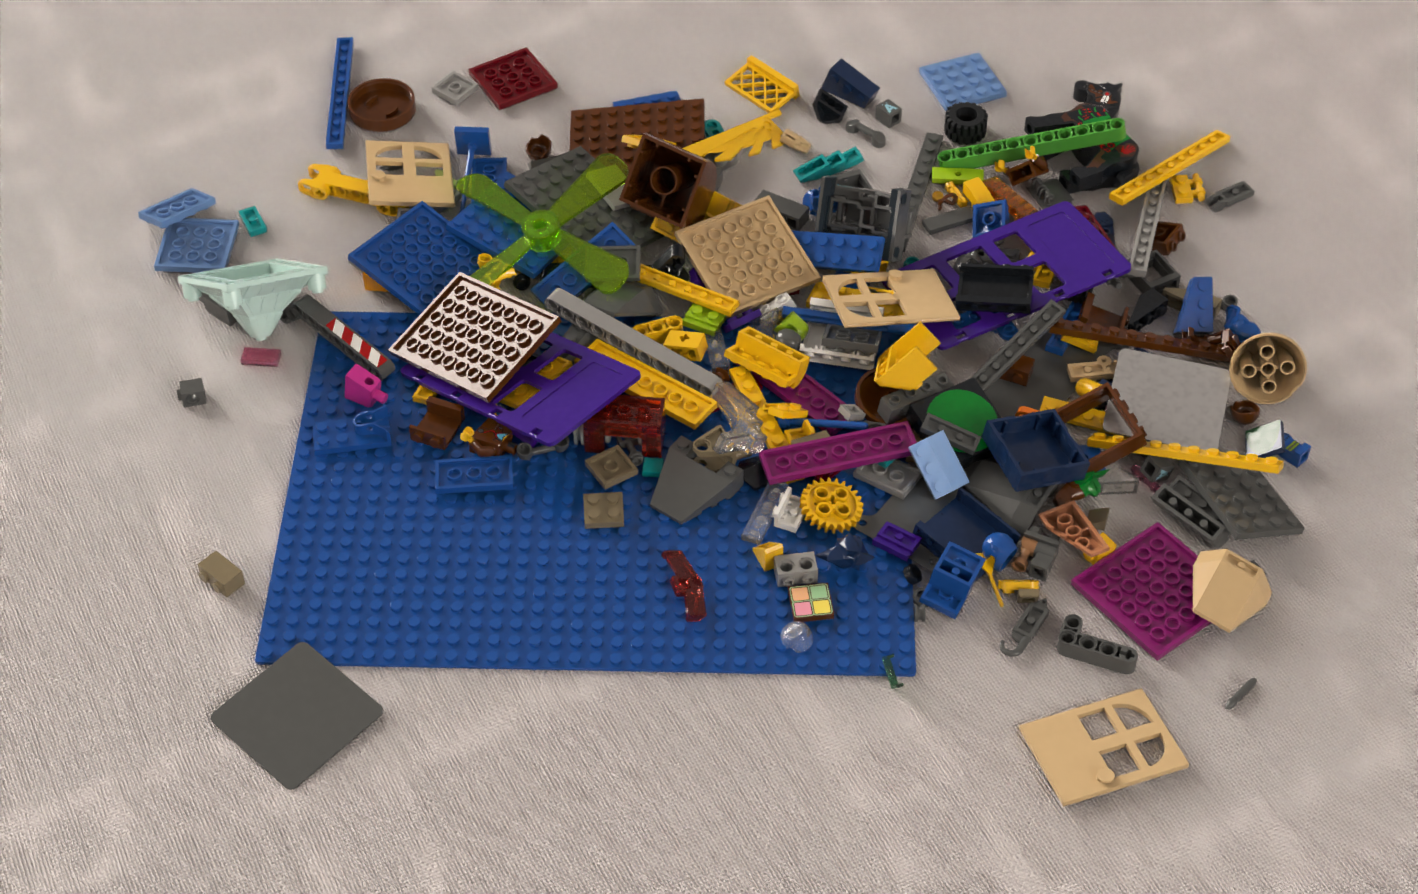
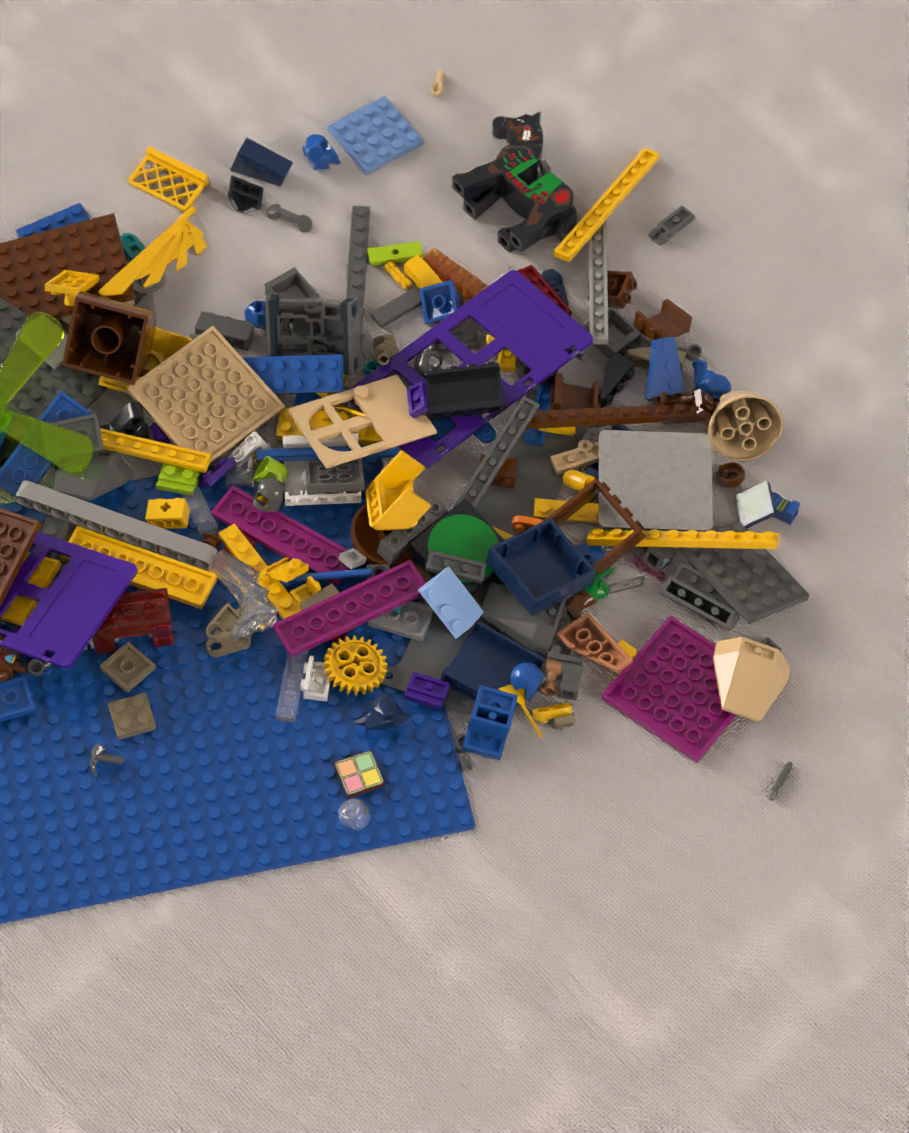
camera: 15 degrees left, 10 degrees up
(561, 537) = (97, 755): none -> dark grey plant
(635, 456) = (148, 650): dark grey hinge -> none
(652, 467) = (168, 658): teal tile -> none
(660, 328) = (138, 495): yellow beam -> none
(686, 584) = (235, 782): clear red plate -> none
(689, 487) = (209, 674): dark grey wedge -> none
(754, 473) = (269, 644): black slope -> none
(766, 552) = (306, 731): yellow slope -> none
(768, 358) = (255, 514): yellow brick -> none
(795, 141) = (225, 245): tan hinge -> none
(795, 569) = (334, 738): light grey brick -> none
(829, 165) = (260, 266): teal slope -> none
(888, 113) = (307, 190): dark grey brick -> none
(890, 672) = (446, 821): clear green piece -> none
(907, 85) = (319, 153): none -> blue head
(912, 574) = (449, 721): black tile -> none
(927, 246) = (384, 348): none -> dark tan piece
(940, 198) = (380, 281): reddish brown piece -> none
(948, 288) = (417, 399): none -> dark purple plate
(965, 123) = (390, 199): black tyre -> none
(1026, 171) = (464, 237): reddish brown torso -> none
(1027, 627) = (569, 755): dark grey plate -> none
(1030, 54) = (437, 87): none -> tan piece
(1044, 143) = (471, 202): bright green beam -> none
(1048, 192) = (491, 256): dark grey hinge -> none
(1075, 760) = (640, 883): tan door -> none
(1093, 649) = (640, 764): dark grey beam -> none
(1099, 517) = (613, 621): dark tan slope -> none
(1182, 186) = (622, 224): yellow plate -> none
(1213, 267) = (669, 323): none -> reddish brown panel

